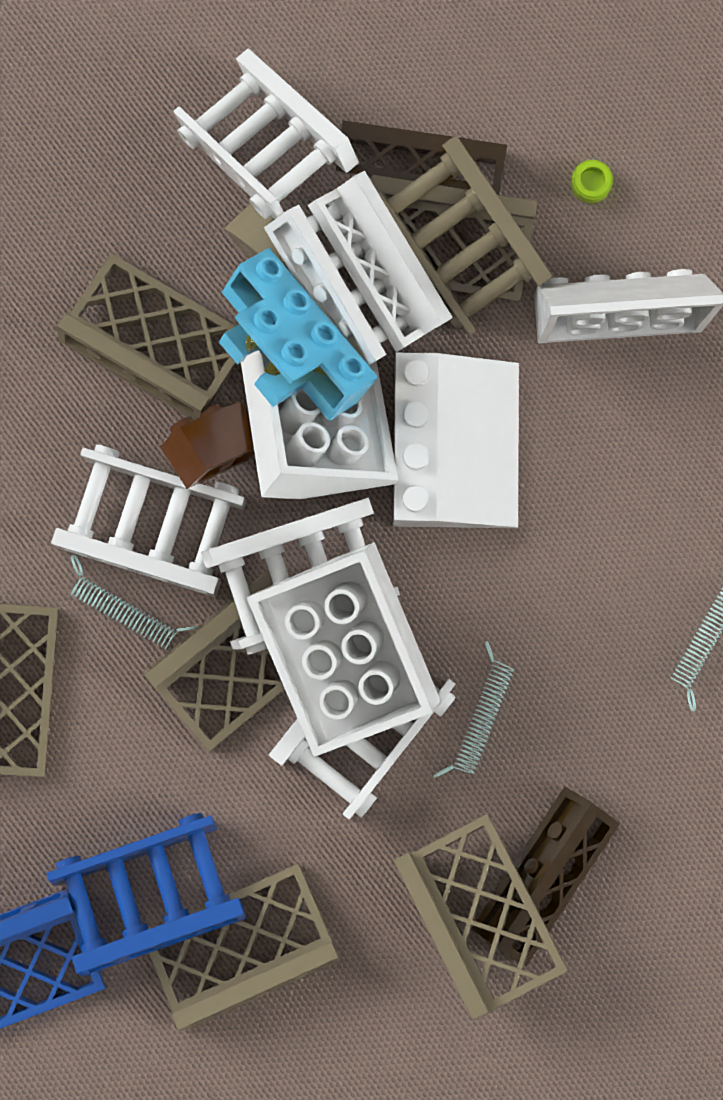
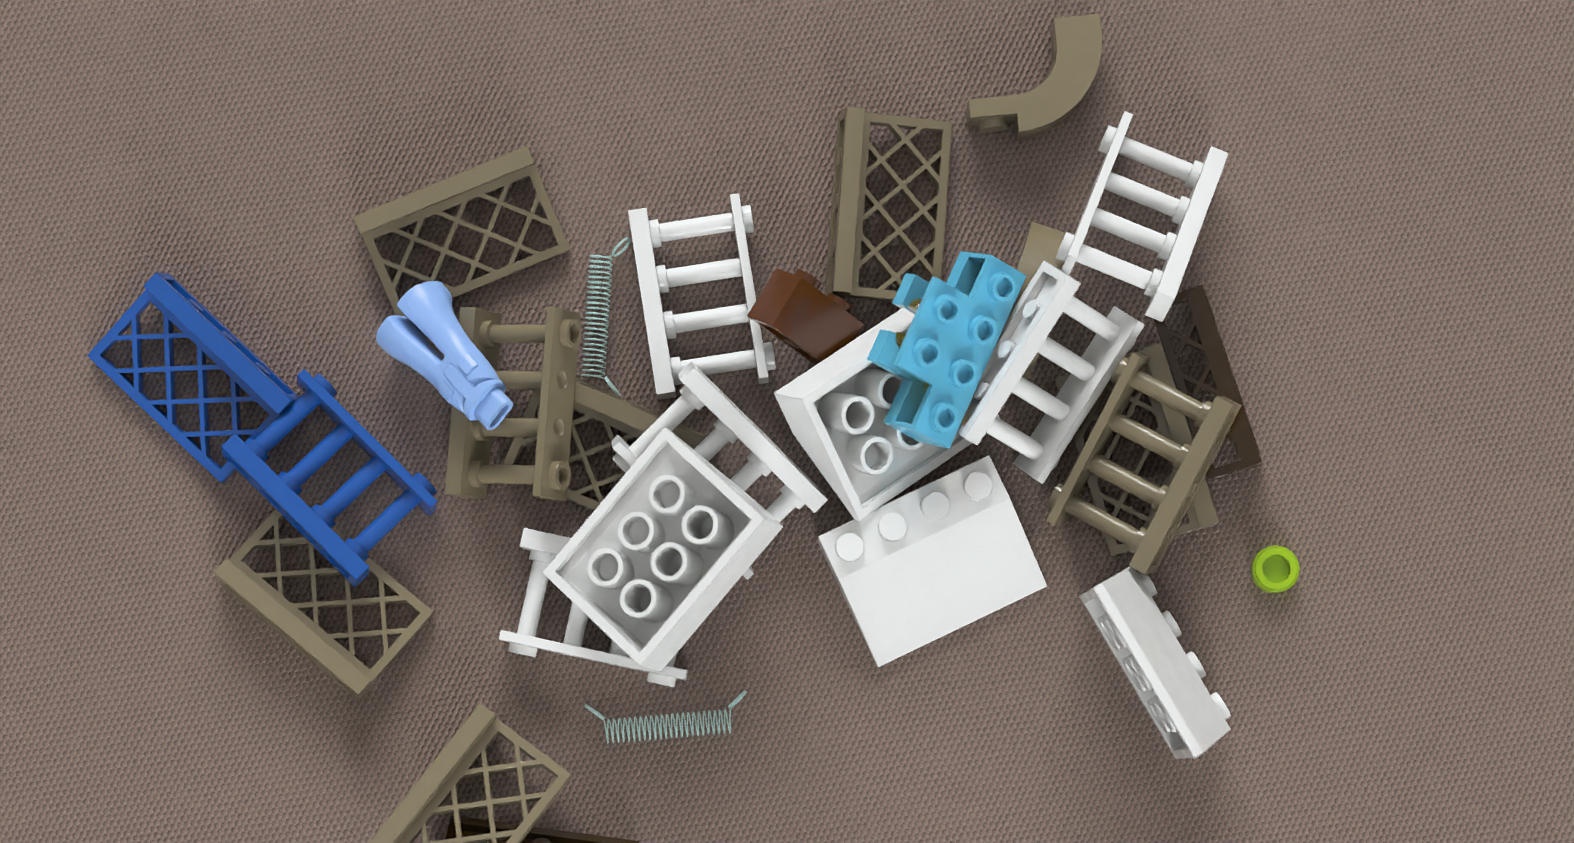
camera: 65 degrees right, 0 degrees up
(113, 132) = (1076, 58): none -> dark tan arch
(118, 745) = (463, 373): none -> light blue piece
(146, 748) = (470, 441): none -> dark tan fence
(386, 258) = (1077, 397): white fence -> none

